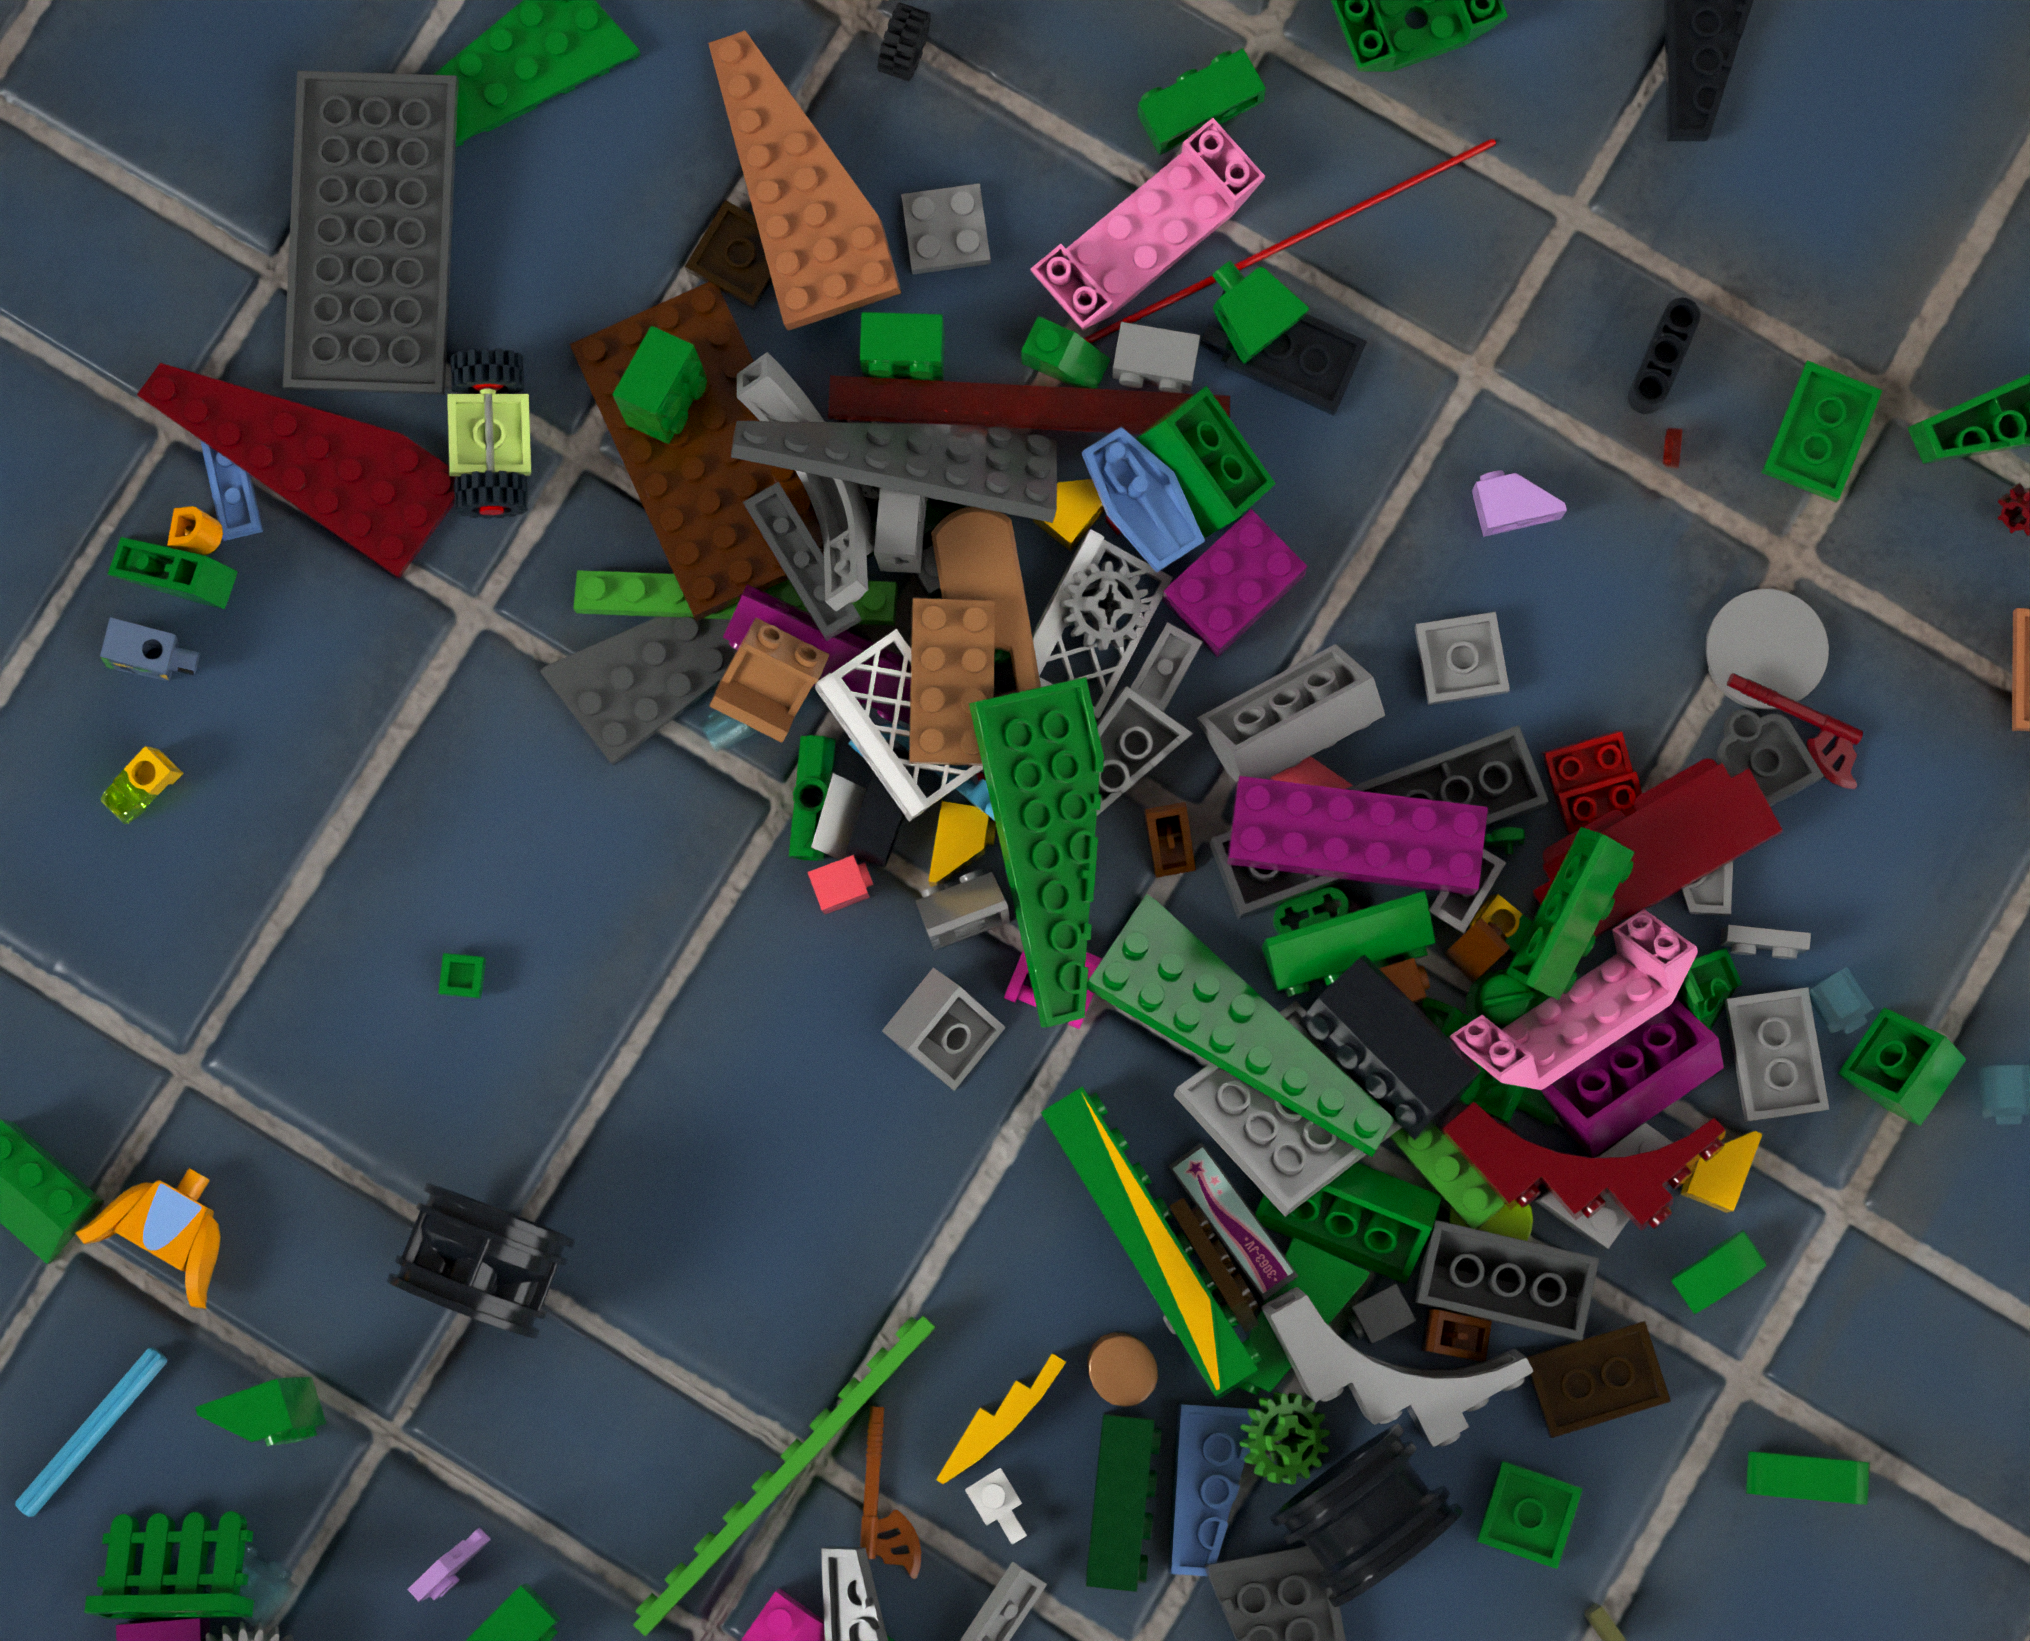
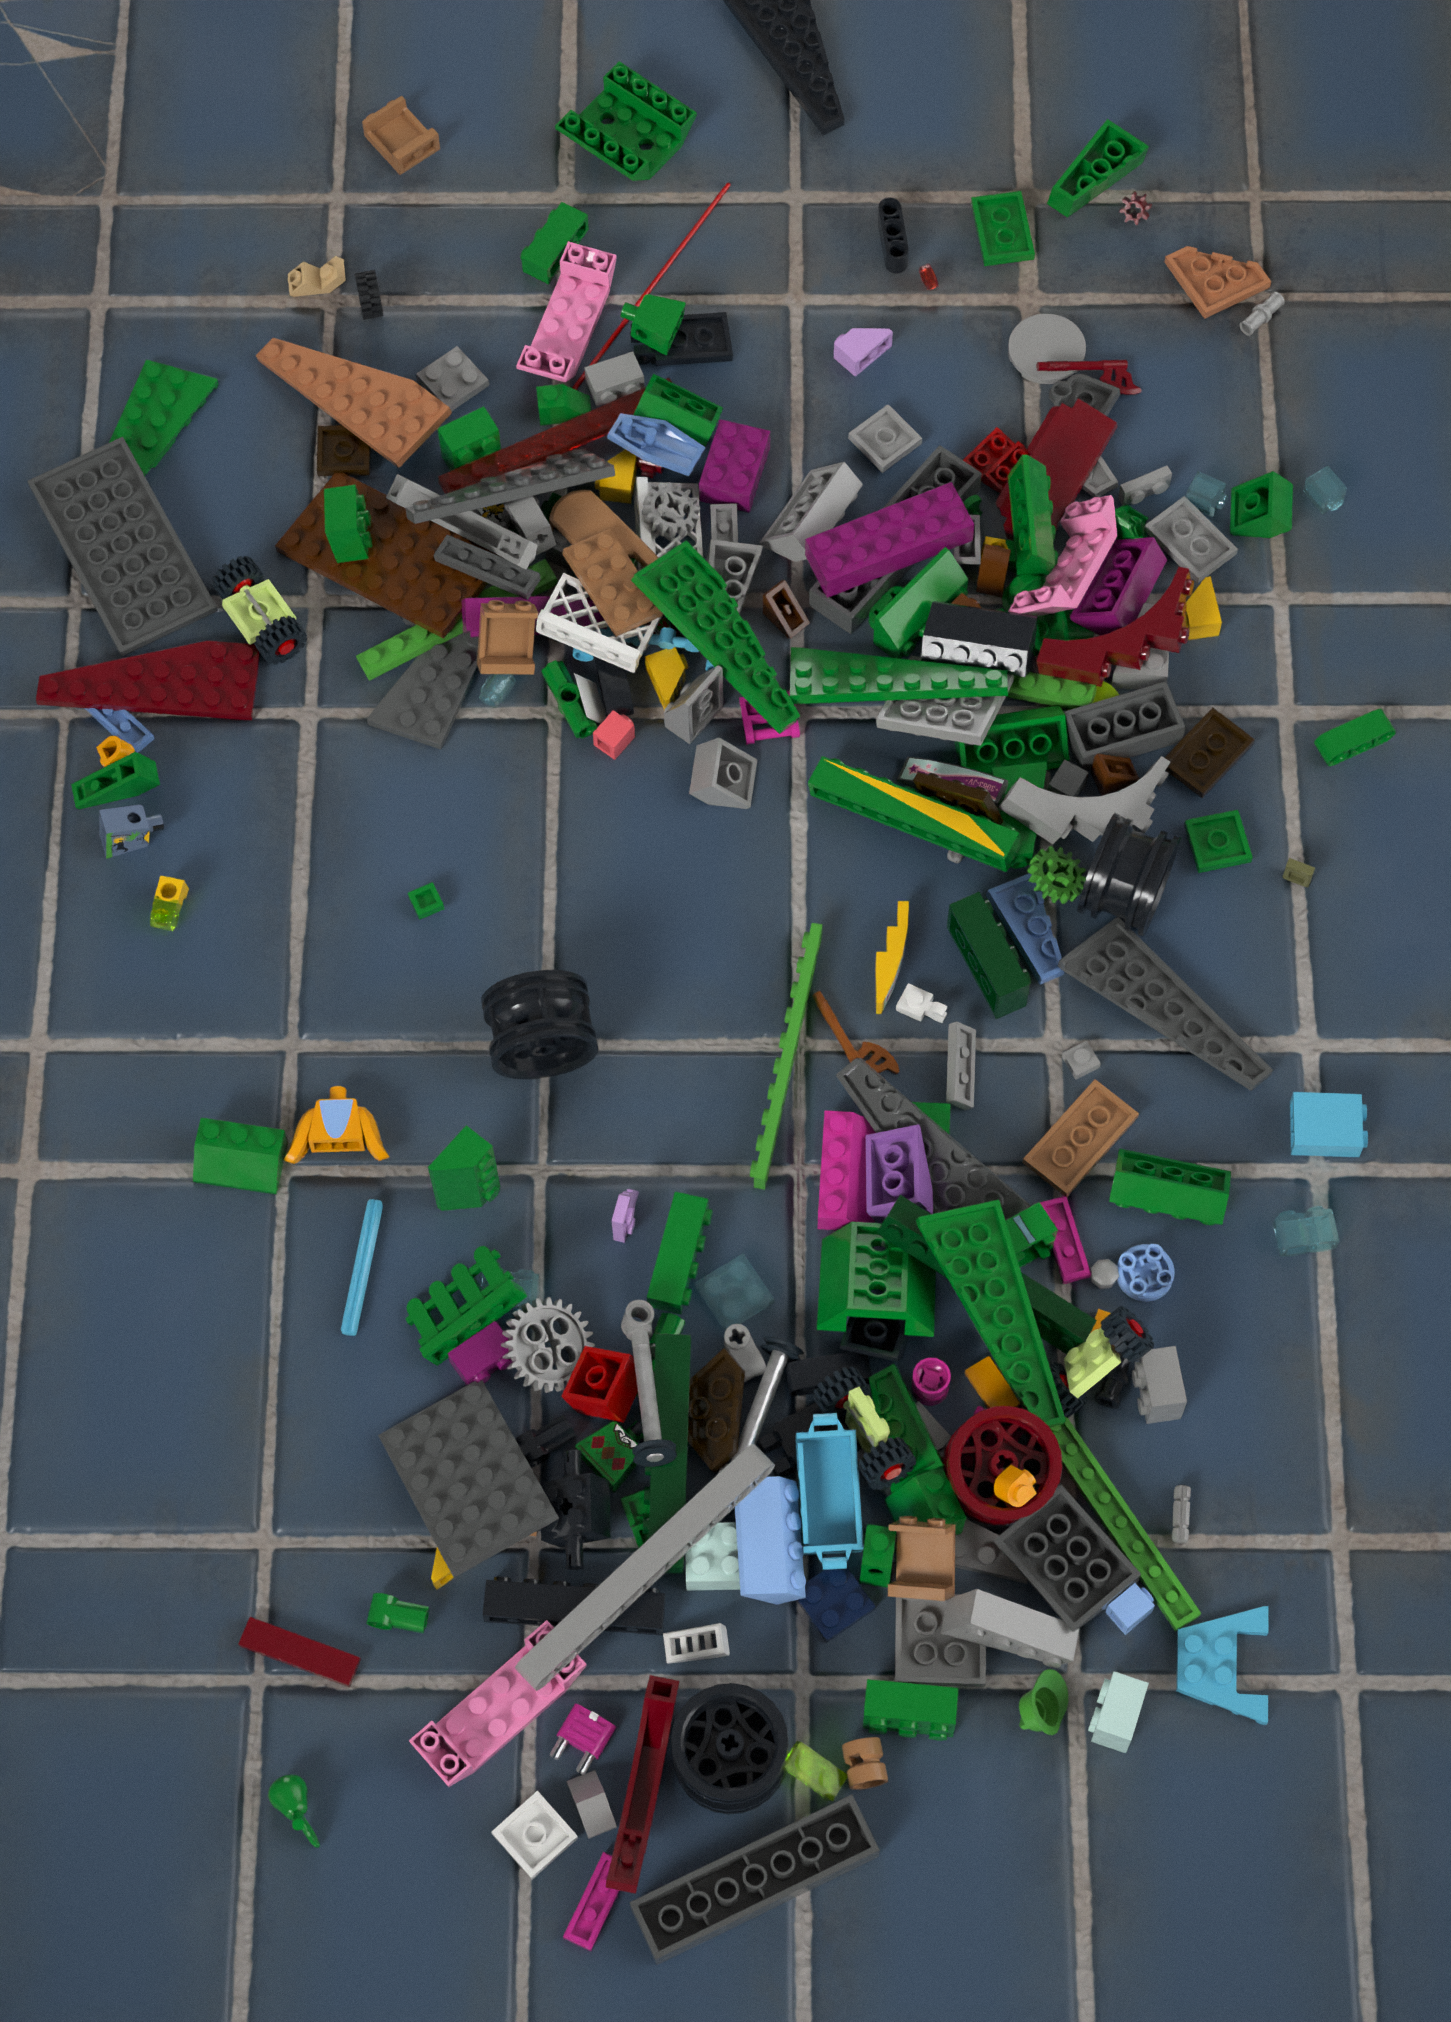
camera: 35 degrees left, 15 degrees down
(1122, 1369) = (939, 891): medium nougat piece -> none
(1719, 1271) = (1235, 662): green slope -> none

